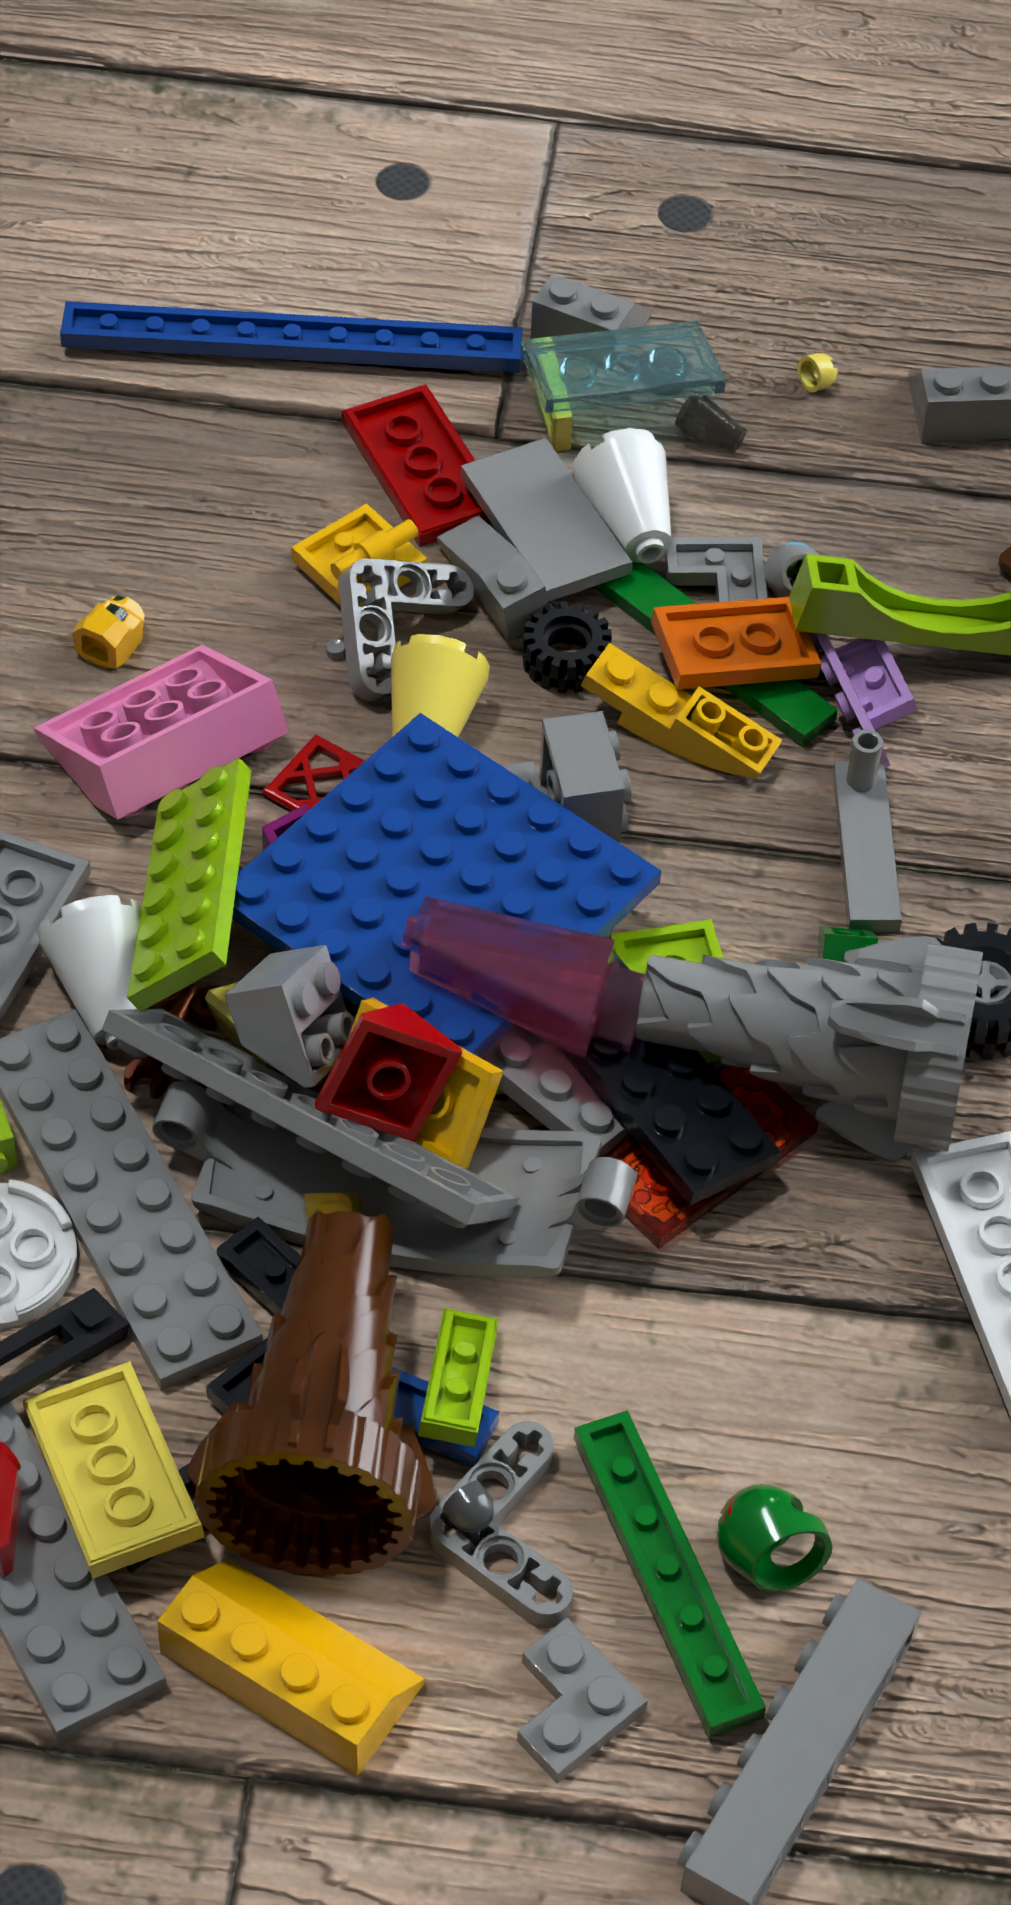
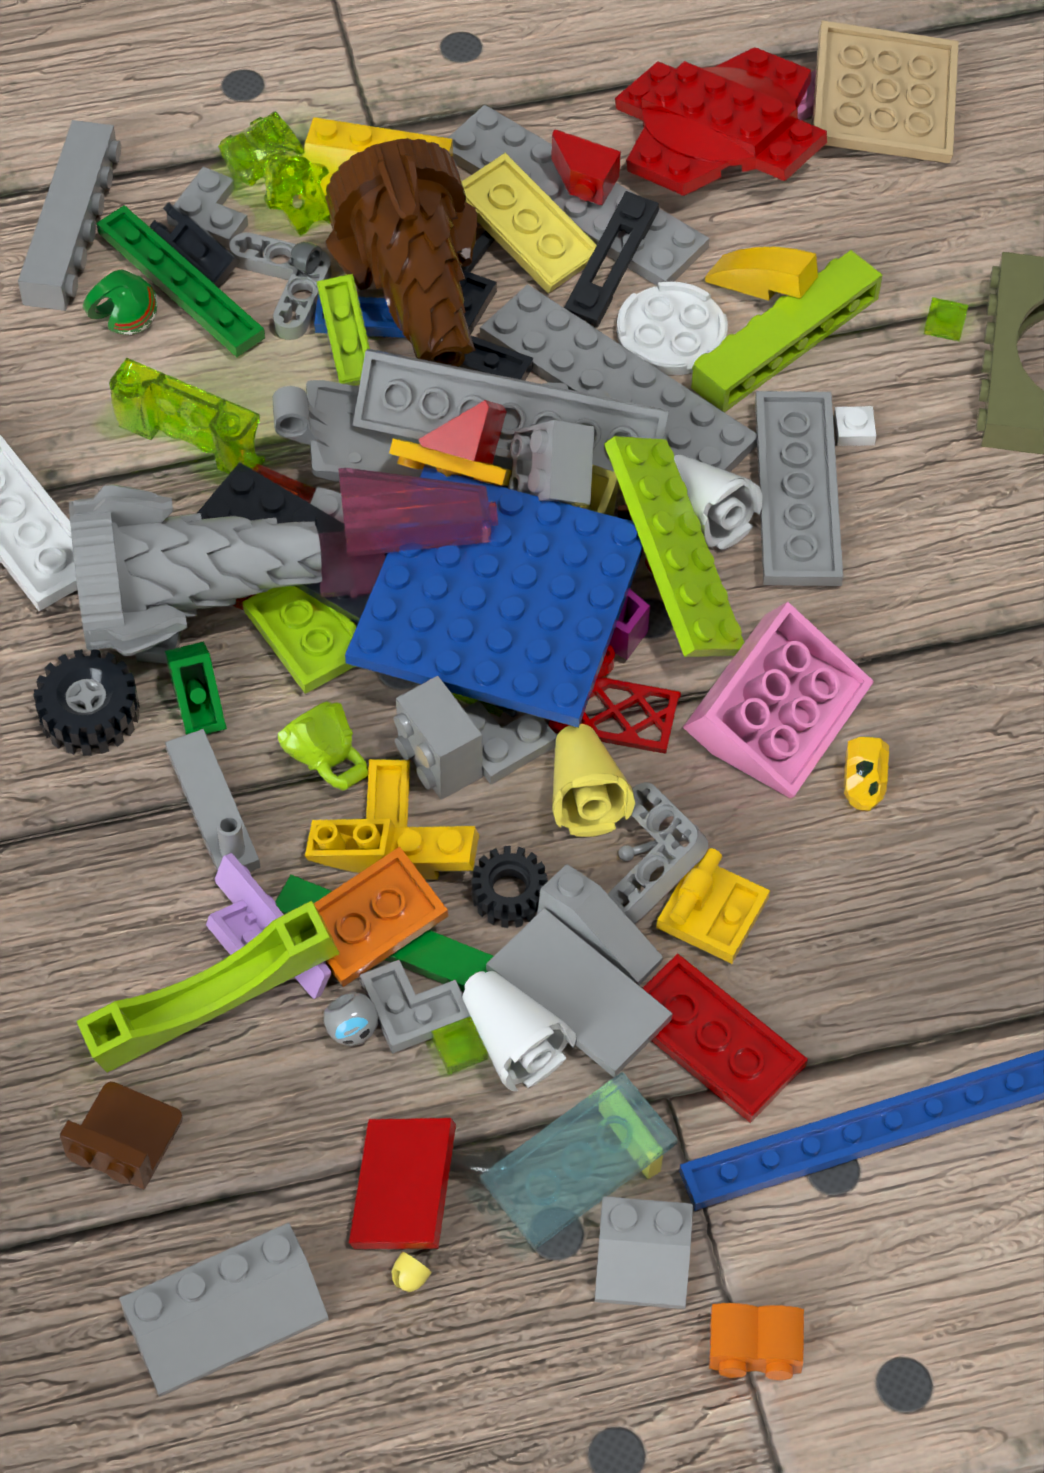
camera: 160 degrees right, 5 degrees up
(463, 1739) = (274, 153): none -> clear neon green hips
(521, 227) = (756, 1340): none -> orange brick
(627, 1618) = (197, 246): none -> black hinge
(661, 786) = (388, 791): none -> yellow tile
(691, 519) = (459, 1045): none -> clear neon green plate
(717, 847) = (322, 742): none -> lime piece
(783, 1340) = (155, 401): none -> clear neon green piece
(797, 431) = (403, 1184): none -> red tile

